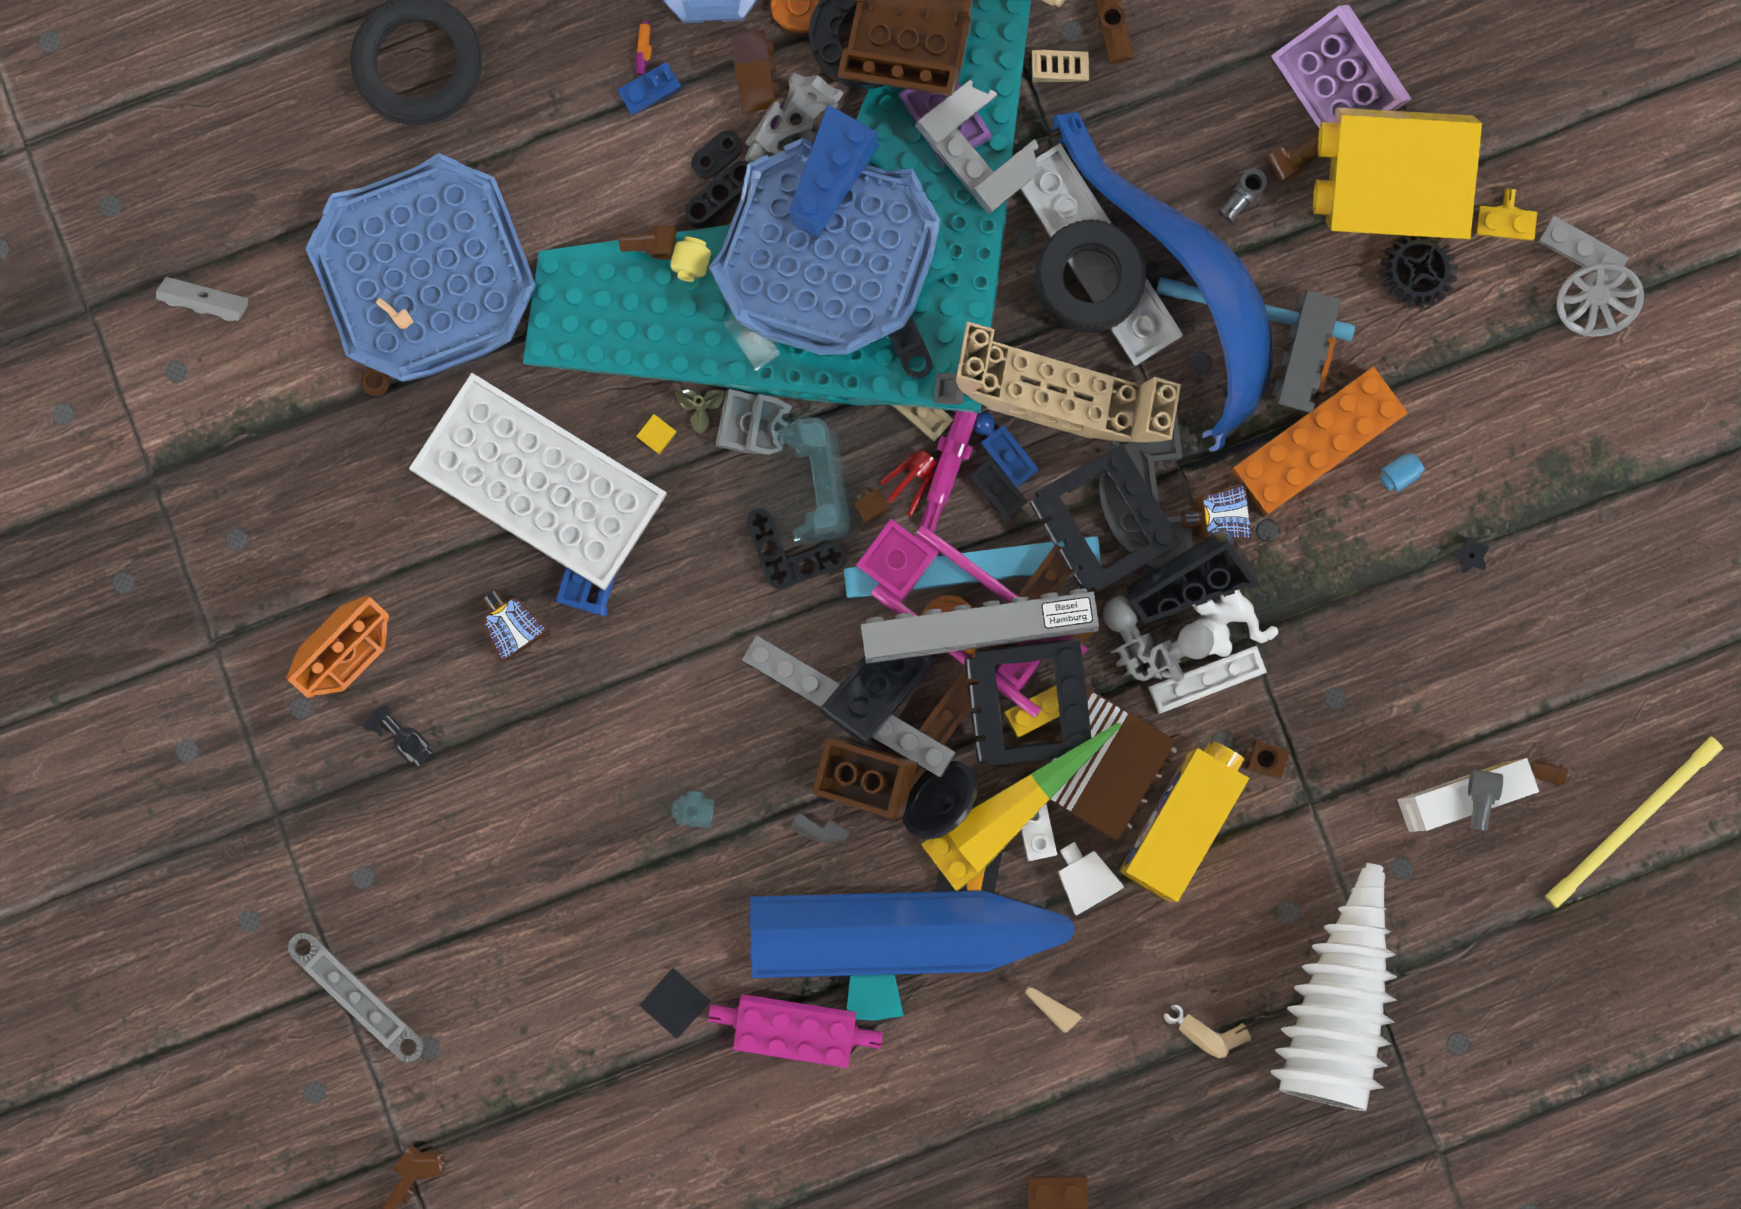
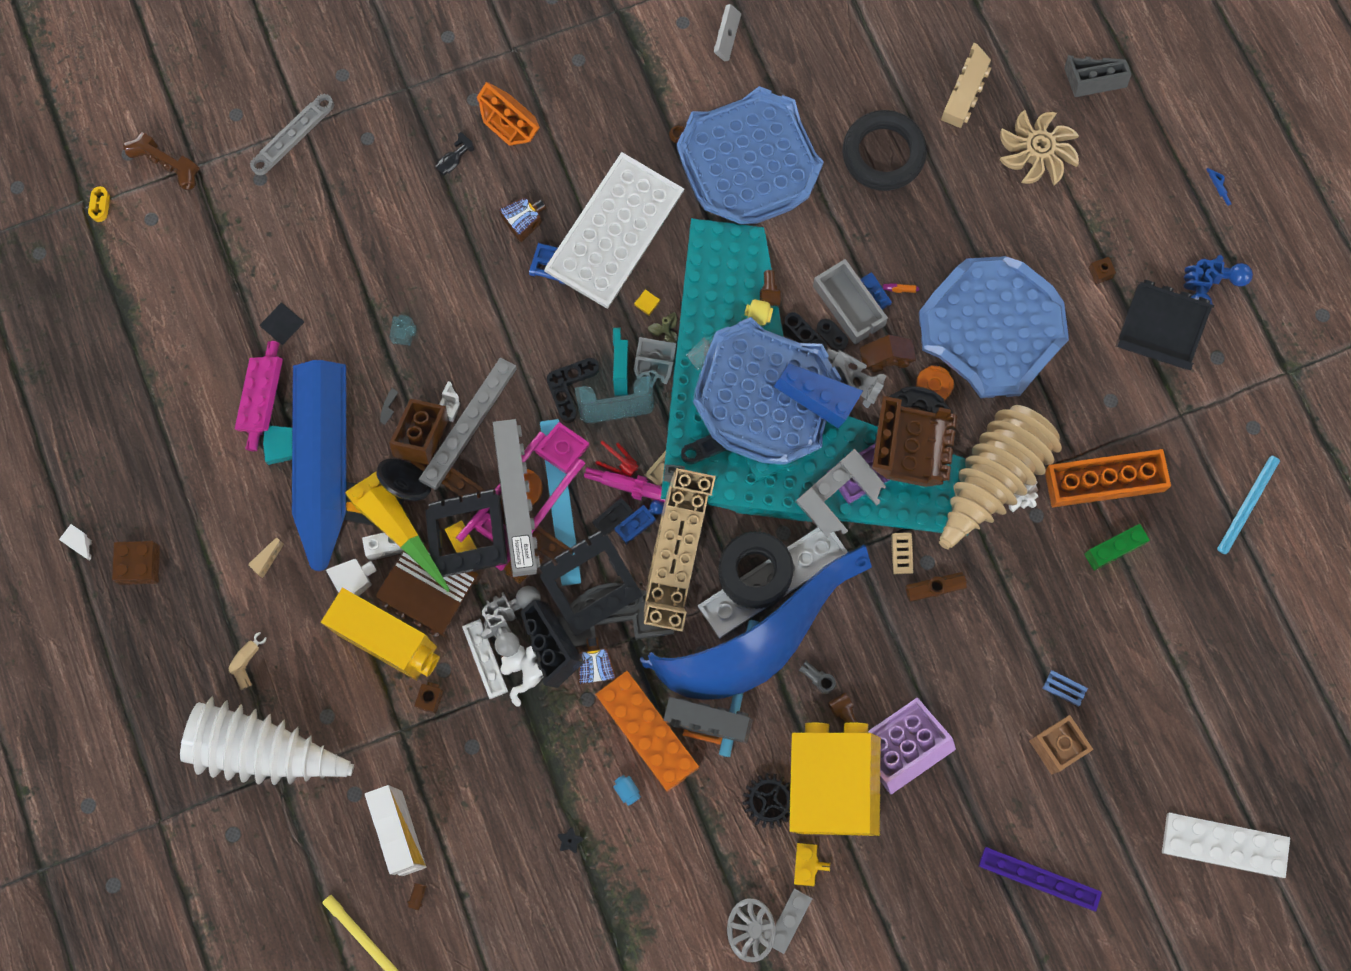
camera: 90 degrees right, 10 degrees down
(402, 318) = (716, 143): light nougat hand -> none
(669, 123) = (850, 301): none -> light grey piece
(756, 473) = (620, 368): none -> teal piece
(810, 737) = (451, 401): none -> white slope
(870, 505) = (601, 433): reddish brown plate -> none
(874, 694) = (473, 435): black tile -> none
(1485, 789) = (388, 832): dark grey pin -> none

